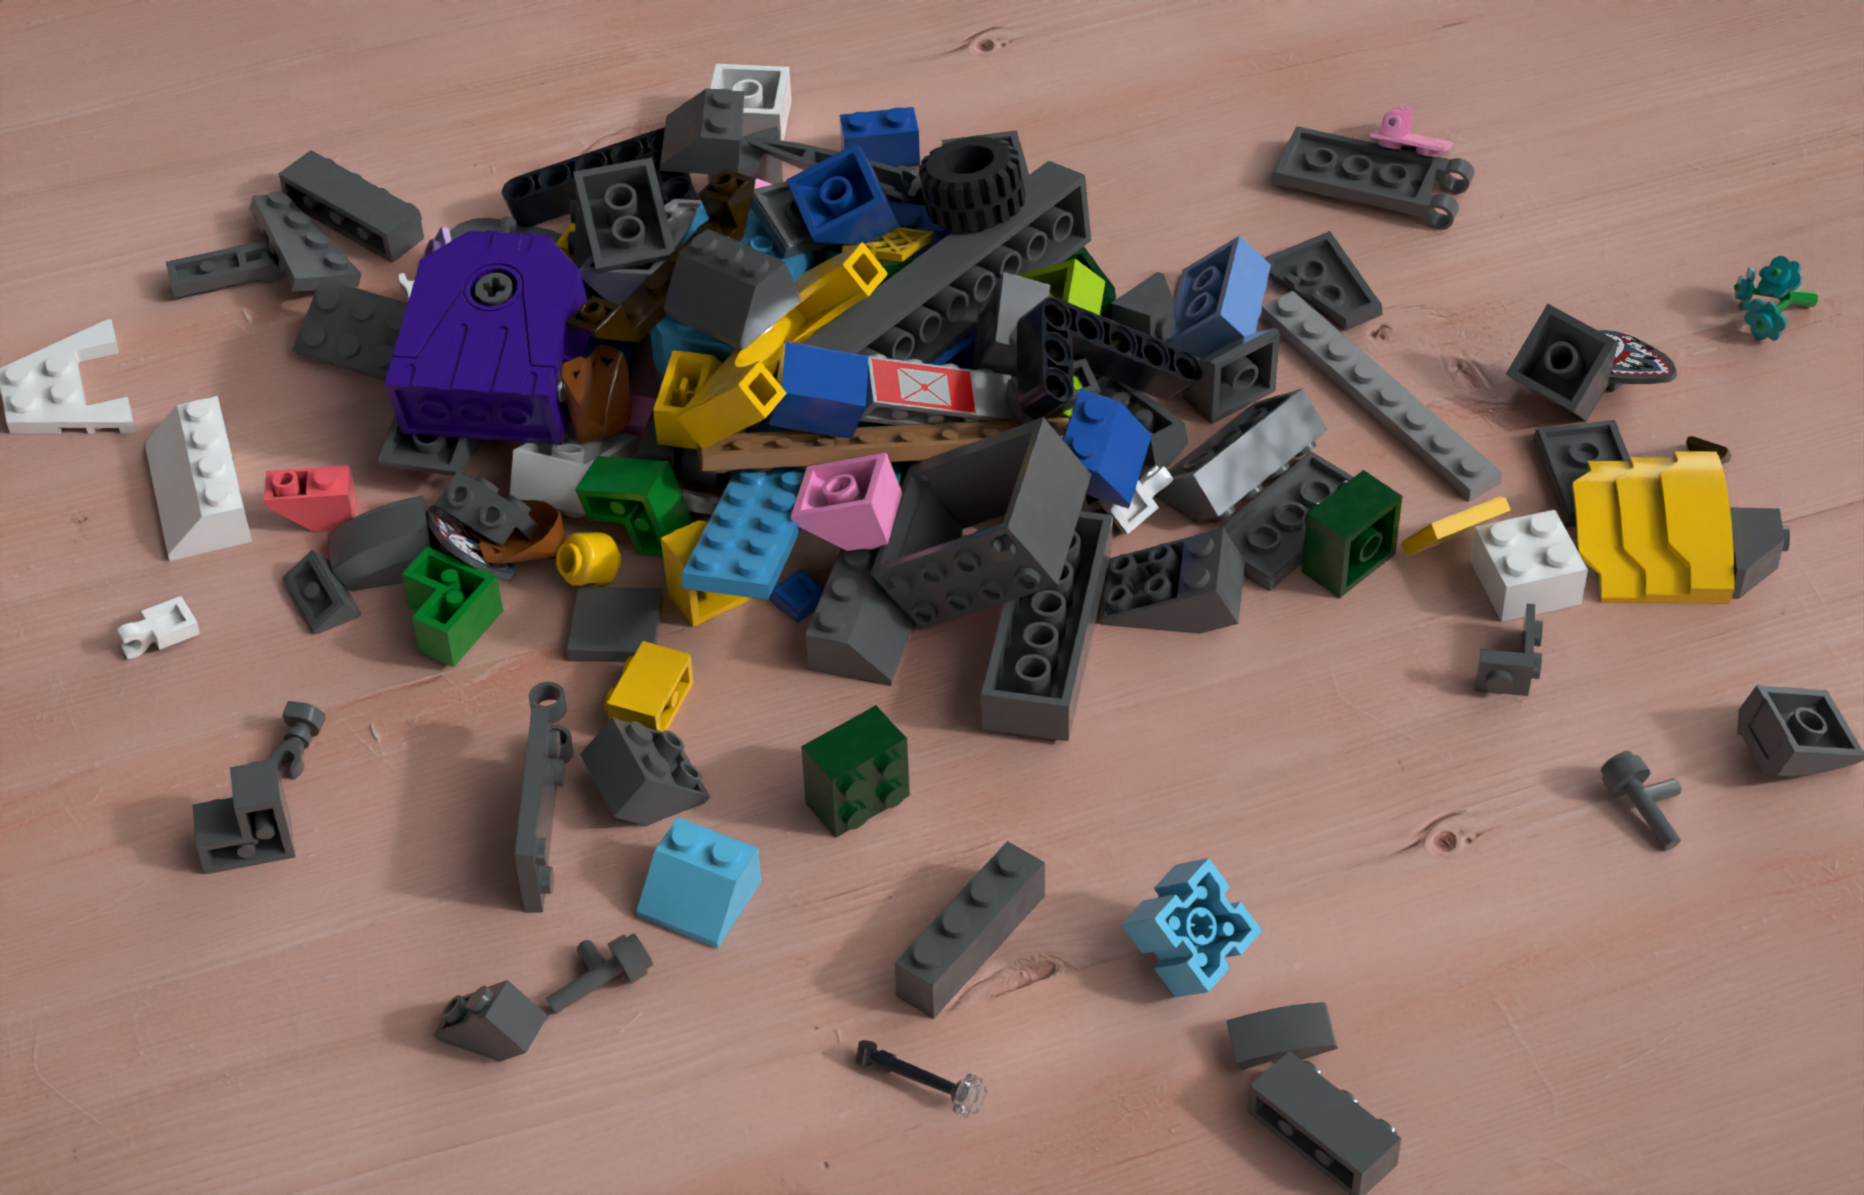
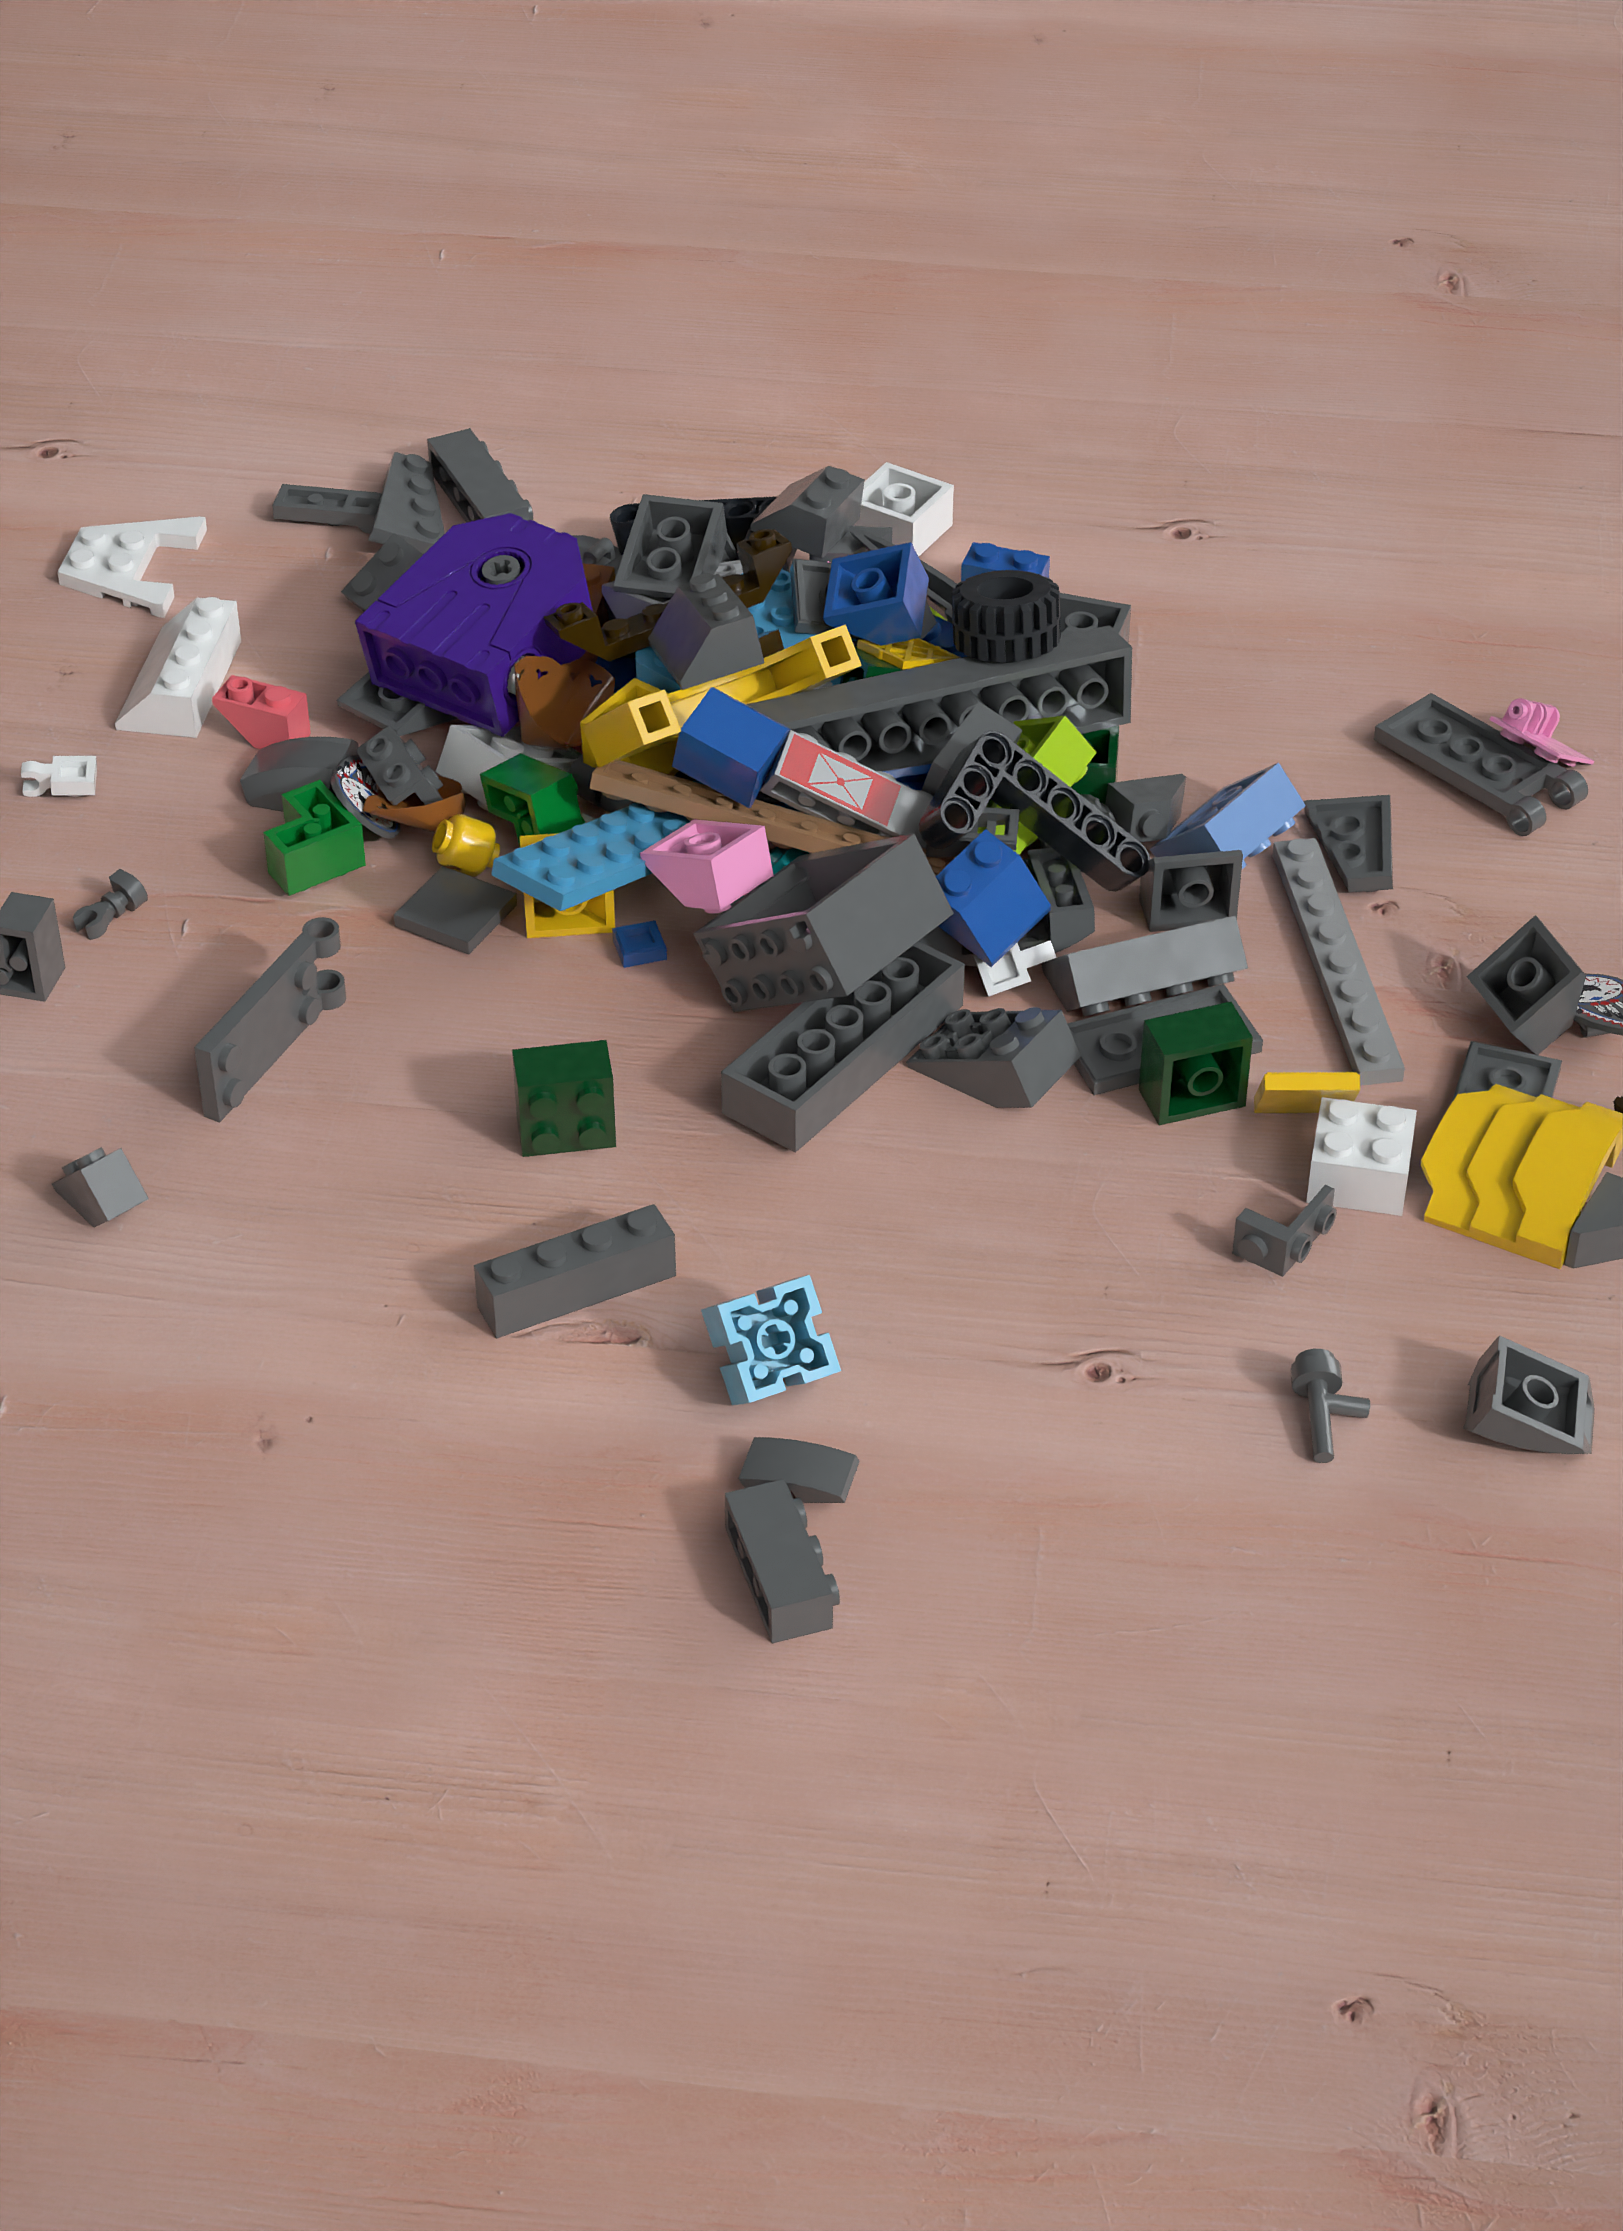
camera: 25 degrees right, 5 degrees down
(320, 593) = (220, 797): dark grey slope -> none
(628, 958) = (249, 1176): dark grey piece -> none
(643, 772) = (383, 1036): dark grey slope -> none
(651, 686) = (439, 974): yellow brick -> none
(699, 882) = (364, 1143): medium azure slope -> none
(857, 623) = (665, 982): dark grey slope -> none
(966, 1094) = (469, 1407): black piece -> none

